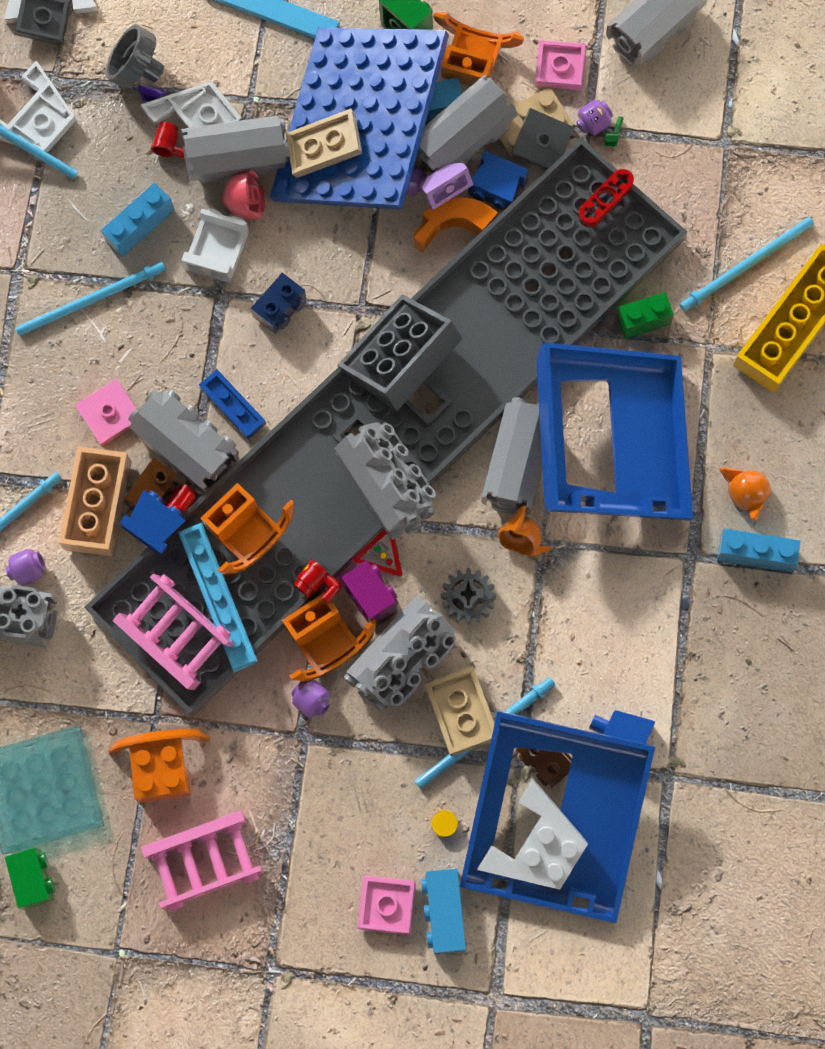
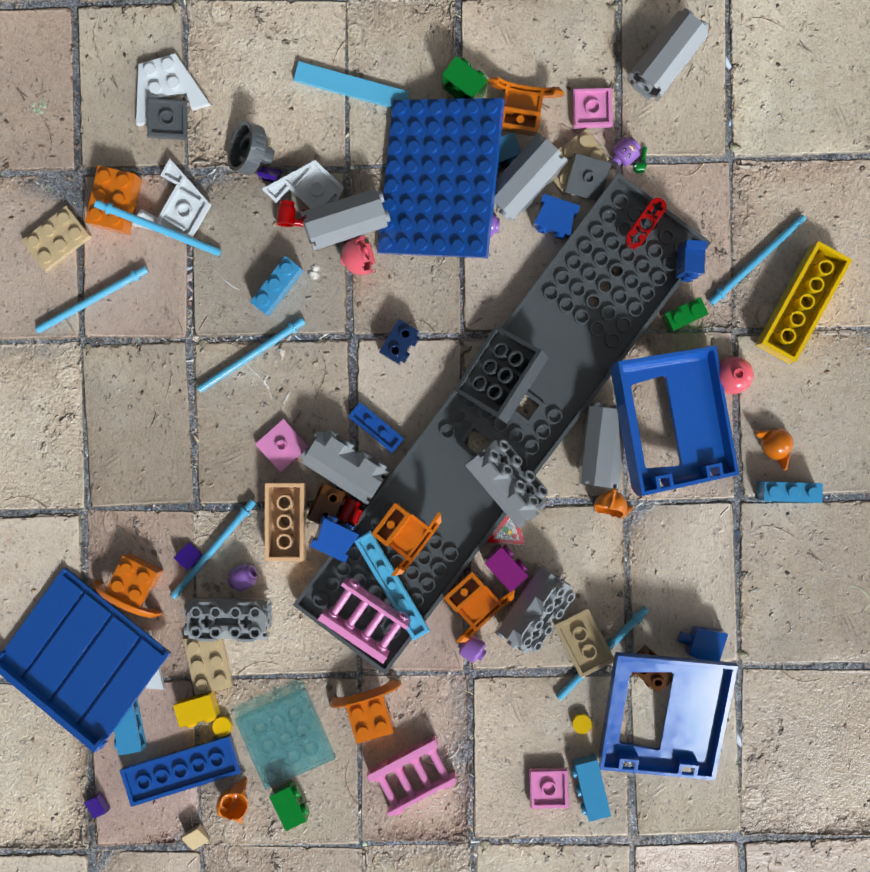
camera: 10 degrees left, 15 degrees up
(216, 245) = (342, 298): white panel -> none
(313, 577) = (461, 564): red piece -> none
(324, 143) = (416, 207): tan plate -> none
(446, 184) = (517, 228): lavender slope -> none
(454, 213) = (529, 246): orange arch -> none
(458, 596) = (579, 567): dark grey gear -> none
(547, 852) = (662, 740): white wing -> none
(654, 242) = (690, 260): none -> blue hips
(703, 398) = (735, 374): none -> coral cylinder

